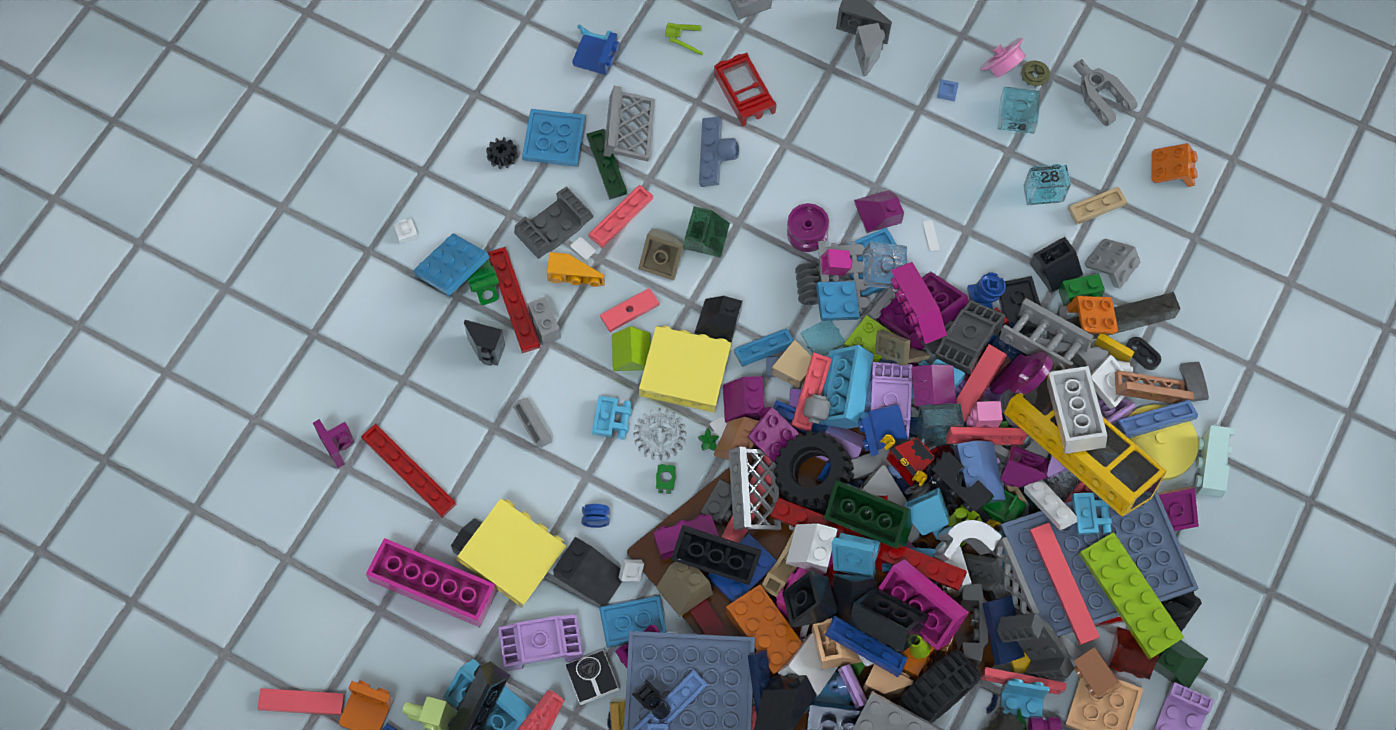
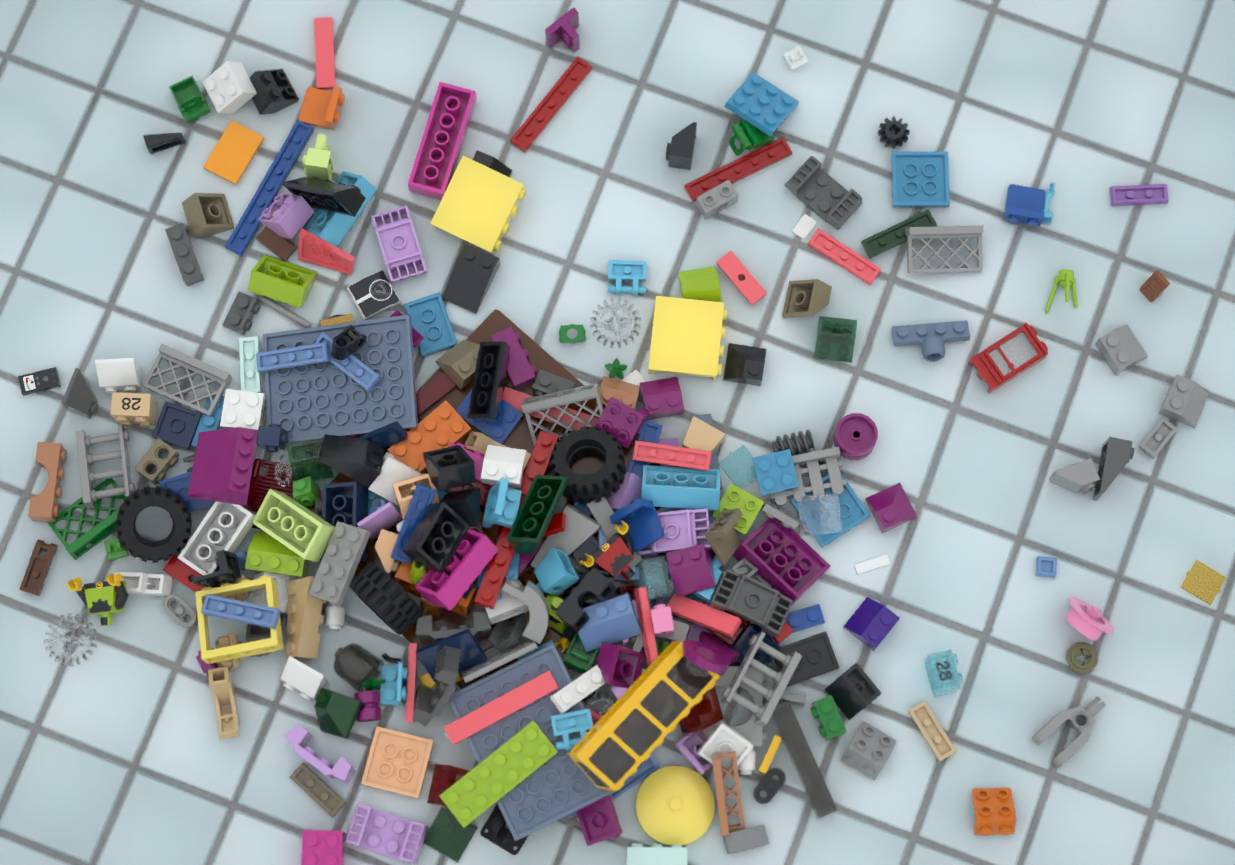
camera: 85 degrees right, 10 degrees up
(532, 423) = (611, 206): light grey piece -> none
(570, 270) = (776, 211): light orange slope -> none
(595, 515) = (526, 274): blue wheel -> none
(631, 570) = (476, 314): white plate -> none
(763, 347) = (720, 410): dark azure plate -> none
(816, 408) = (651, 459): light grey head -> none
(836, 262) = (815, 465): dark pink brick -> none
(918, 303) = (777, 546): dark pink brick -> none
(990, 287) = (815, 623): blue wheel -> none
(991, 241) = (871, 623): none -> dark purple slope
(1019, 110) = (1031, 641): clear light blue brick -> none
(1076, 410) = (668, 700): white brick -> none
(1095, 314) = (795, 727): orange bracket -> none
(1097, 673) = (422, 748): nougat slope -> none
(1157, 419) = (694, 799): medium blue tile -> none

